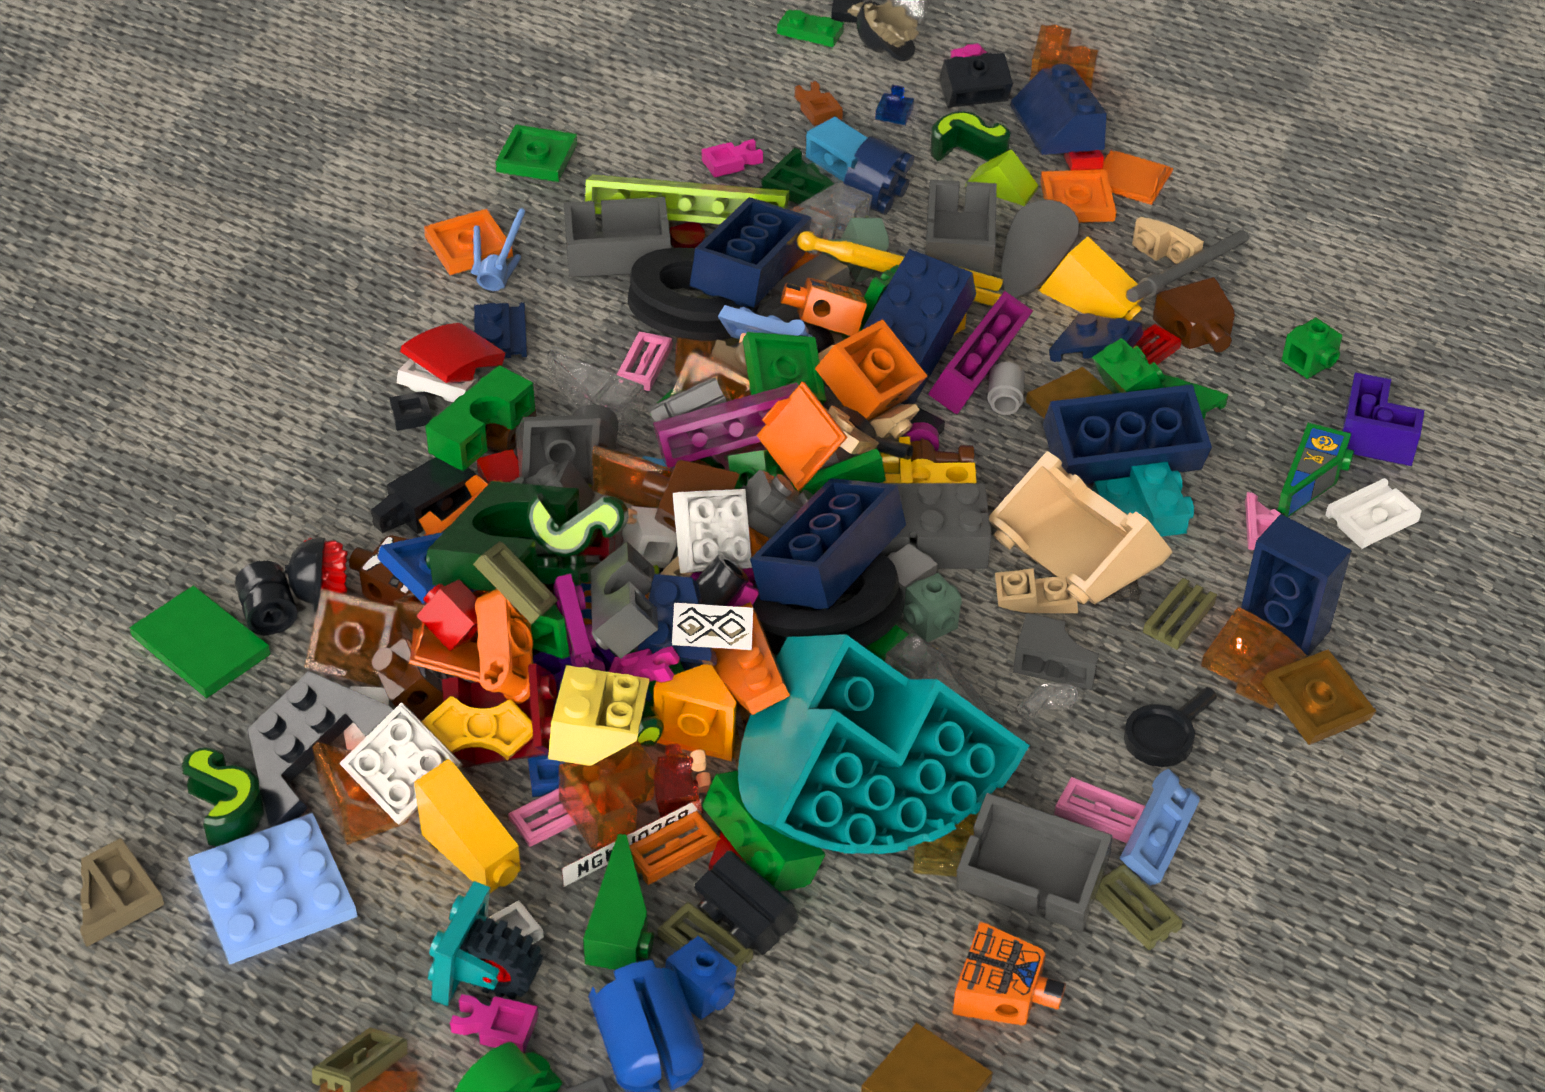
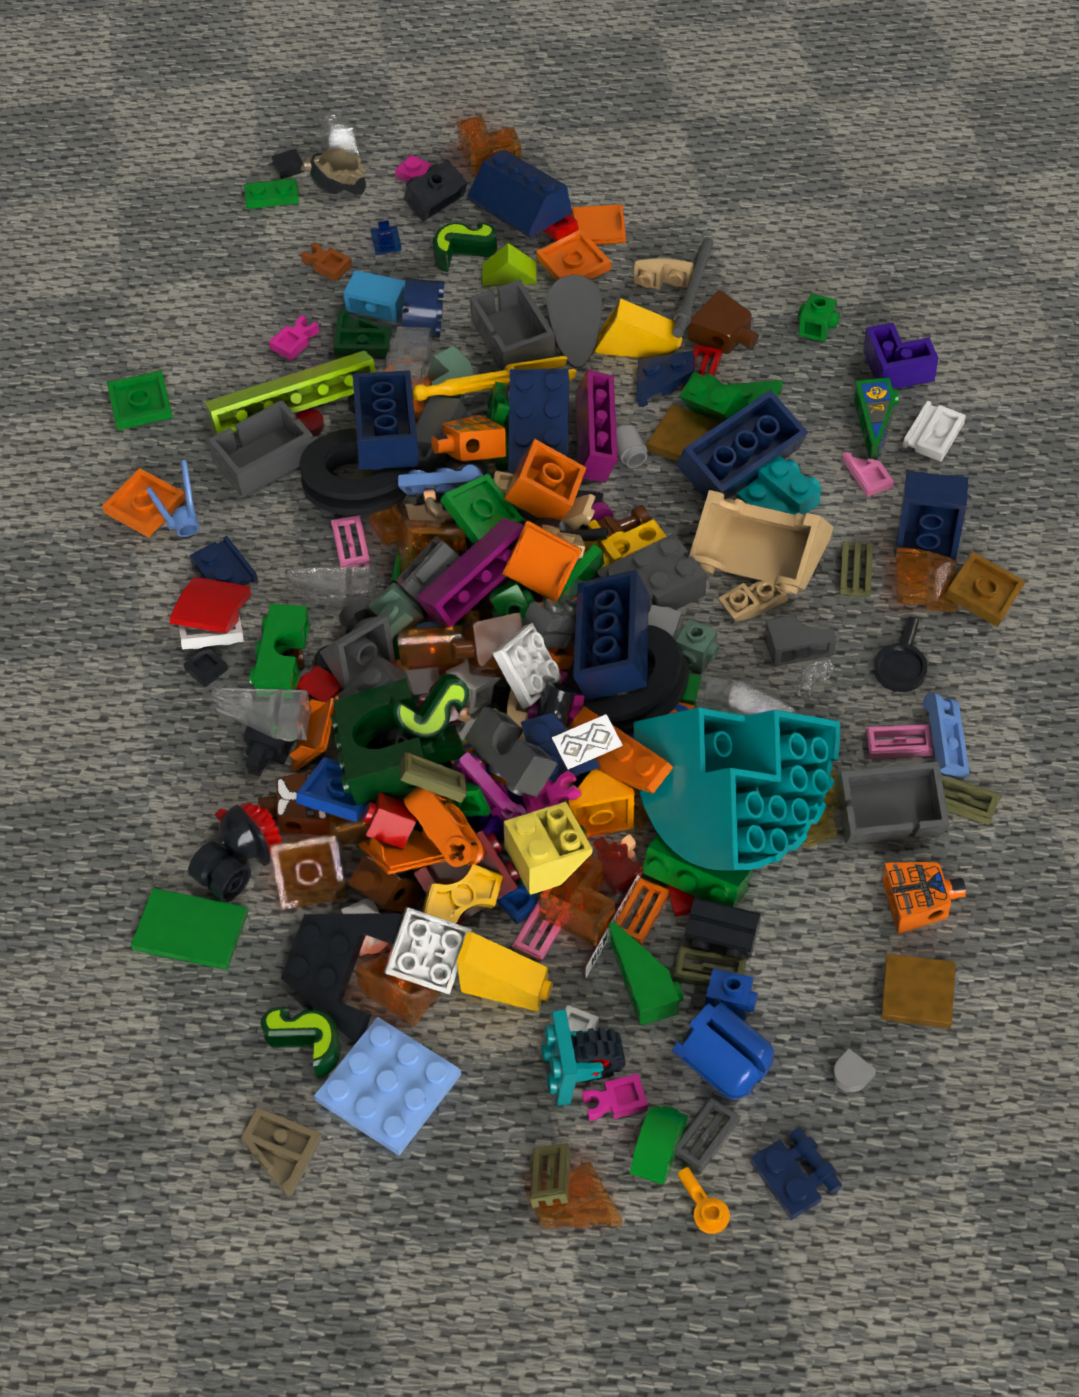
camera: 25 degrees left, 10 degrees up
(428, 468) = (269, 711): none -> clear slope
(630, 429) = (400, 607): none -> sand green brick

